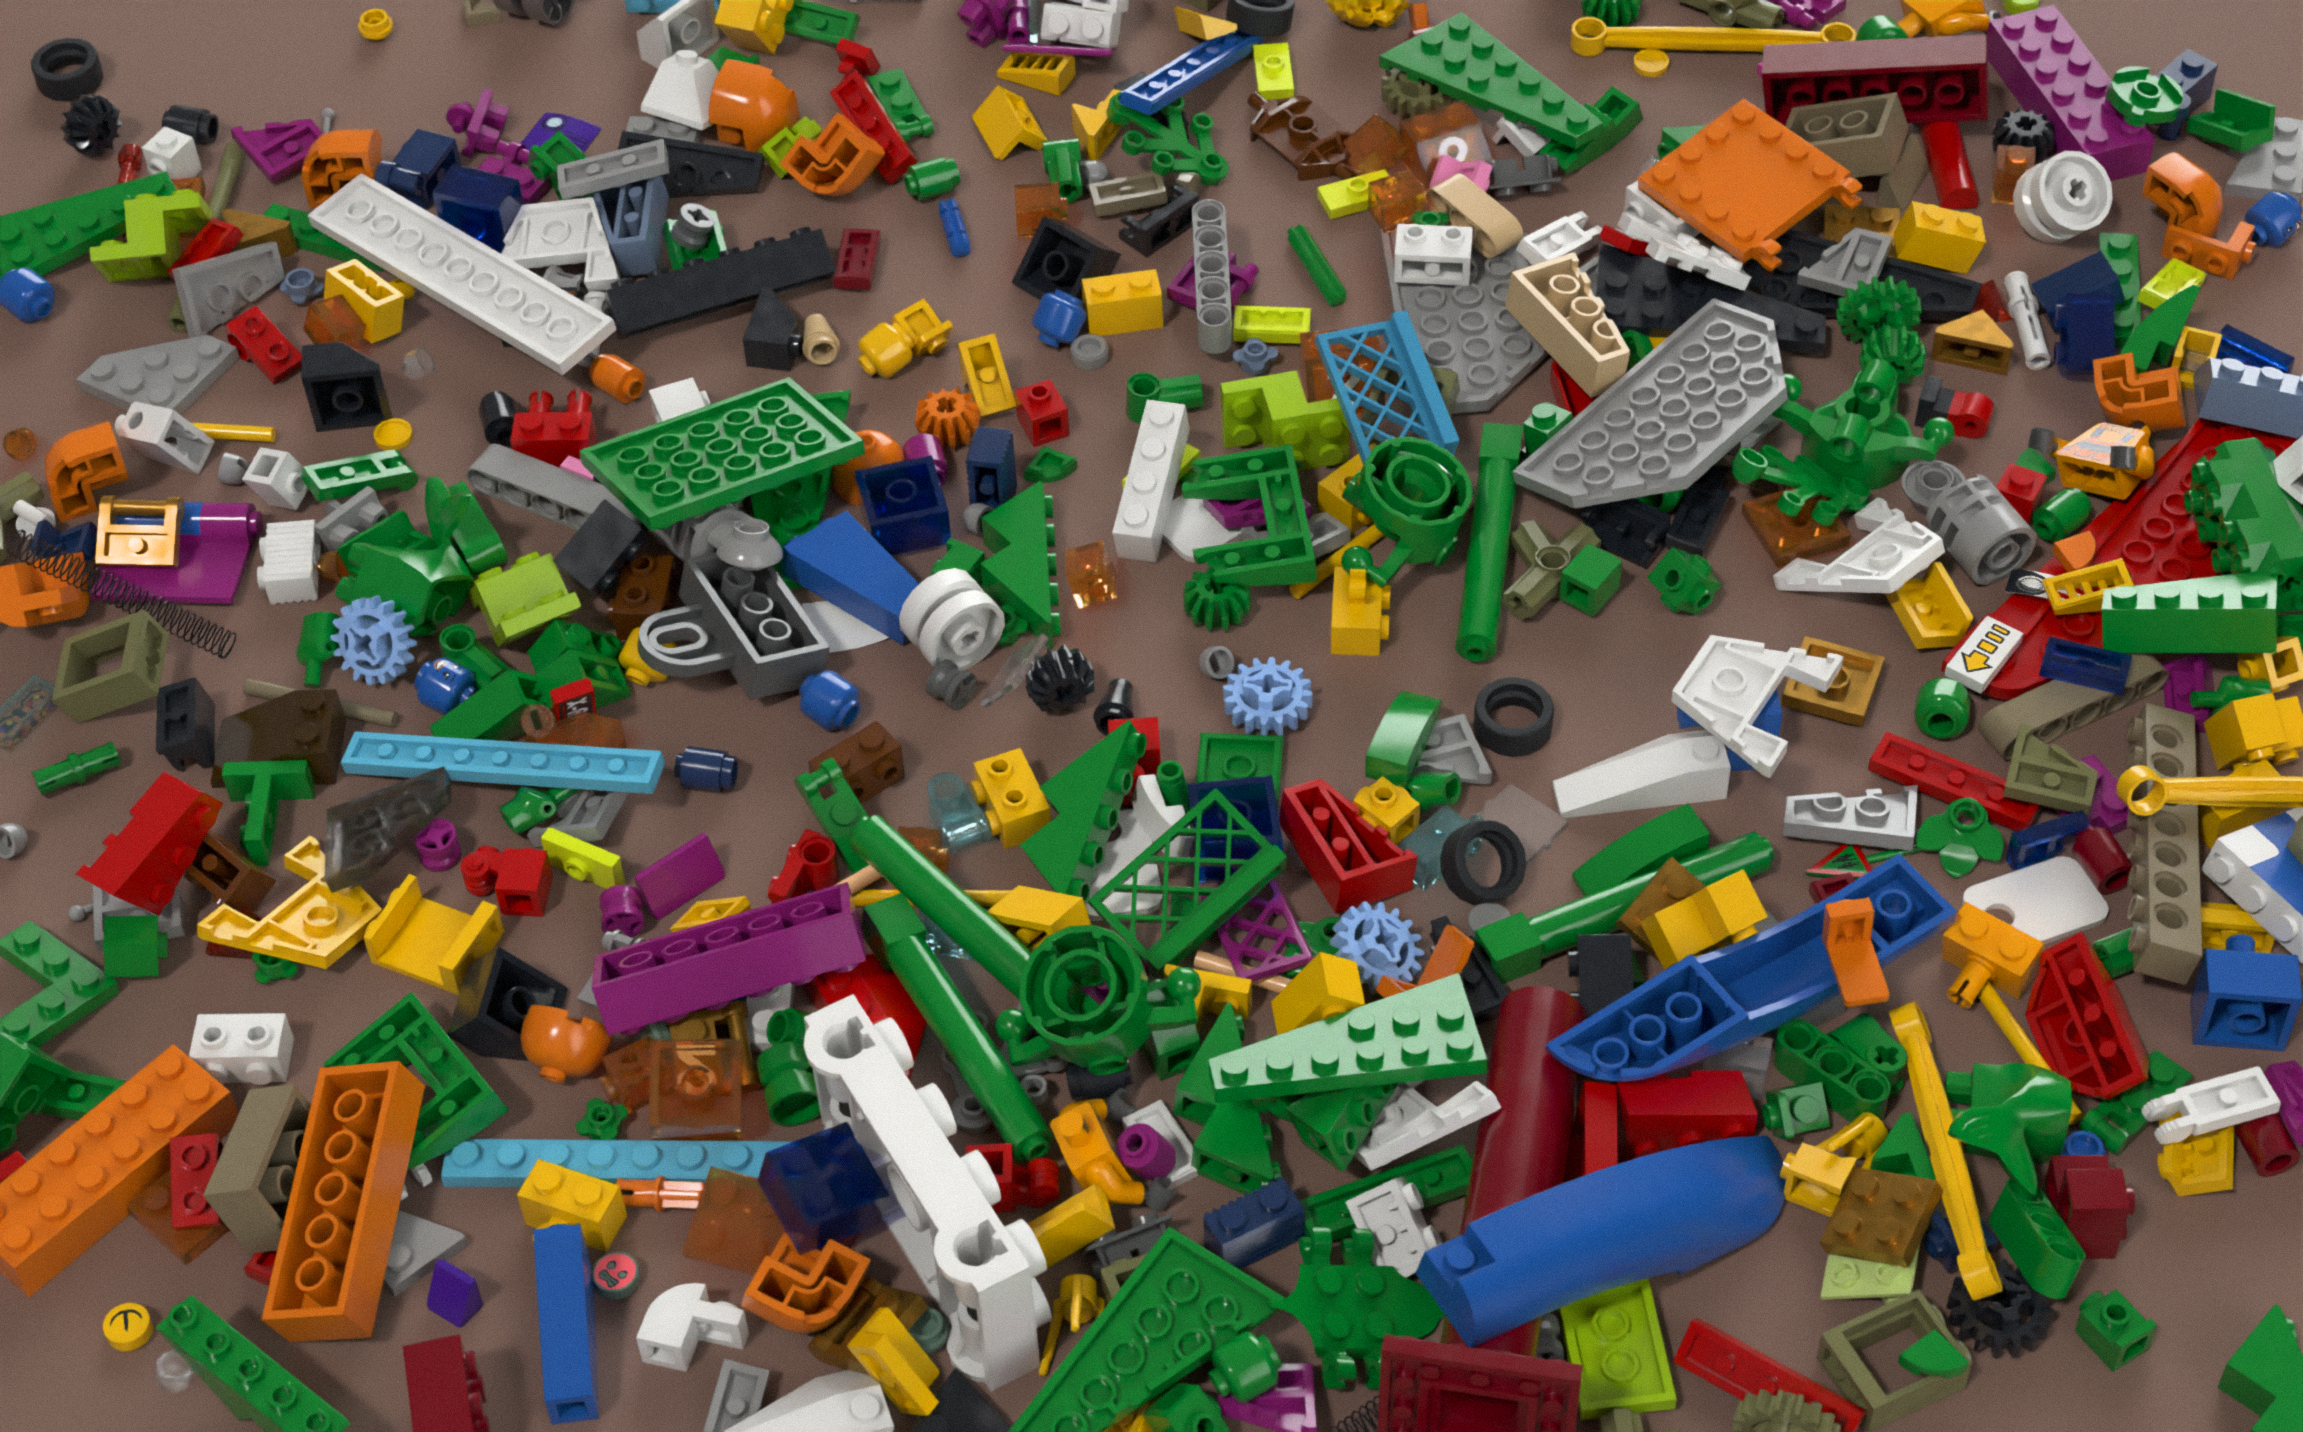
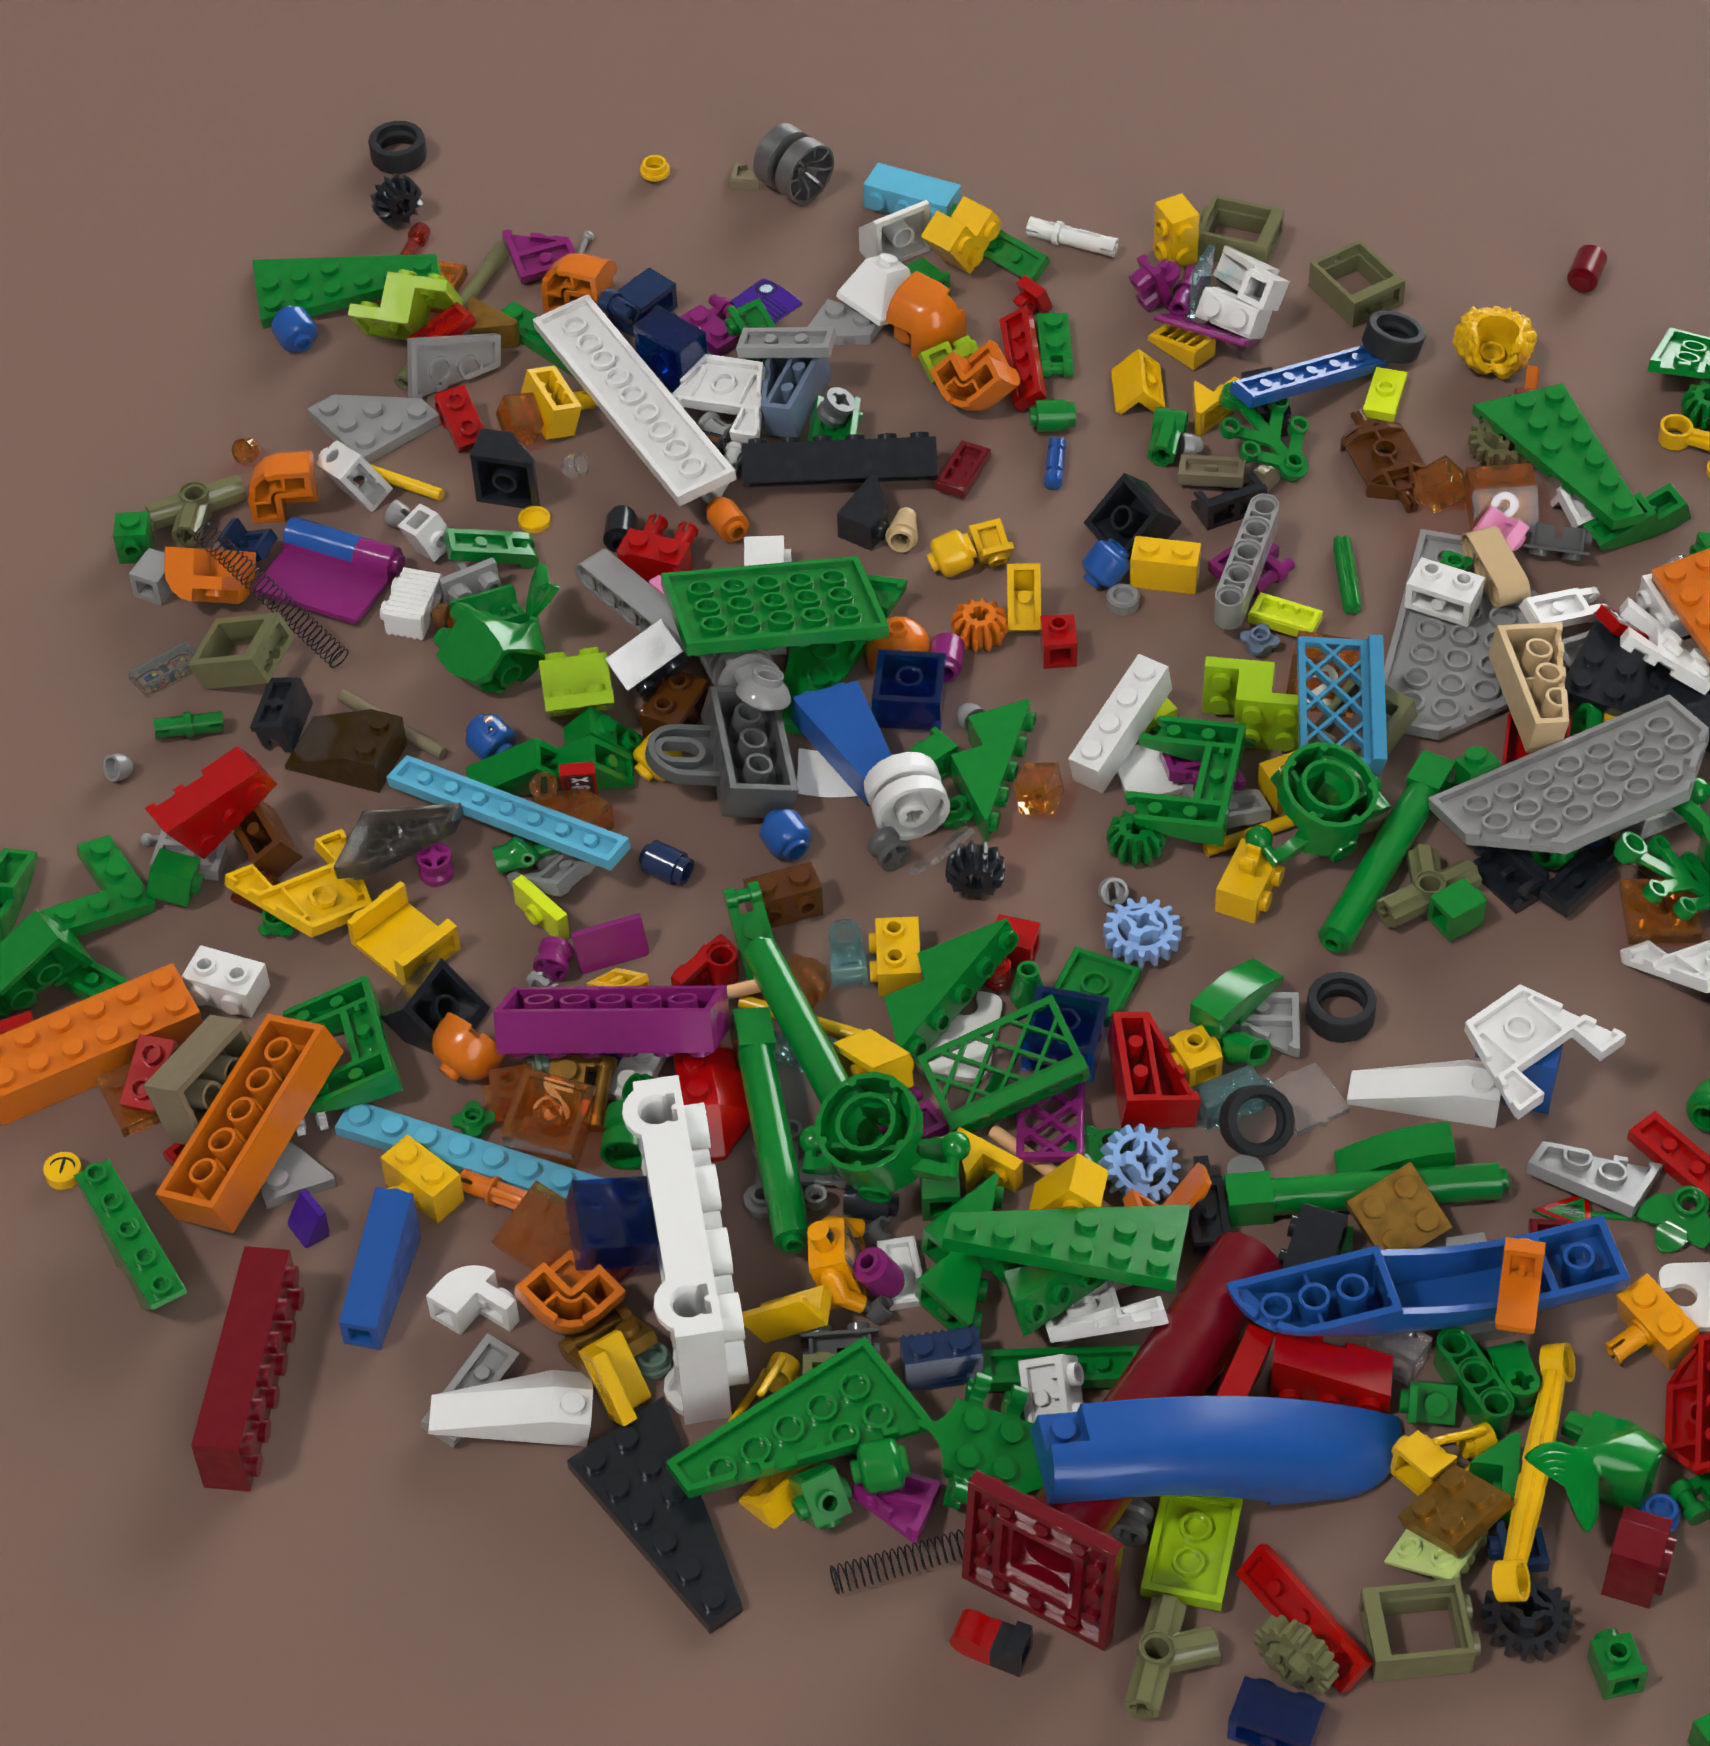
camera: 20 degrees right, 0 degrees up
(29, 517) = (230, 511): white plate -> none
(139, 543) = (301, 557): plate -> none
(170, 1373) = (79, 1216): clear hinge -> none
(172, 153) = (449, 241): white brick -> none
(193, 122) = (475, 218): black brick -> none
(262, 787) = (319, 781): green bracket -> none
(301, 285) = (509, 376): sand blue plate -> none
(316, 645) = (406, 676): green piece -> none
(373, 640) = (447, 685): light blue gear -> none
(460, 645) = (516, 713): green piece -> none
(465, 119) = (699, 272): magenta hips -> none
(476, 538) = (560, 618): green beam -> none
(519, 877) = (483, 907): red brick -> none
(616, 1275) = (436, 1244): tile -> none
(704, 168) = (865, 358): black wing -> none
(991, 467) = (992, 676): dark blue brick -> none
(1018, 1185) = (758, 1264): red brick -> none
(1036, 201) = (1129, 459): clear orange brick -> none
(1050, 466) = (1048, 688): green tile -> none
(1114, 705) = (1015, 902): black cone -> none
(1147, 386) = (1170, 652): green piece -> none
(1156, 817) = (1006, 1003): white slope -> none
(1202, 24) = (1339, 338): yellow slope -> none
(1347, 195) = (1408, 520): neon yellow plate -> none
(1395, 199) = (1433, 535): clear orange brick -> none
(1684, 581) = (1537, 933): green brick -> none
(1709, 918) = (1416, 1221): yellow brick -> none
(1850, 691) = (1639, 1061): pearl gold plate -> none
(1933, 1357) = (1443, 1636): green tile -> none
(2017, 1036) = (1653, 1412): yellow bar -> none
(2037, 1240) = (1579, 1571): green beam -> none

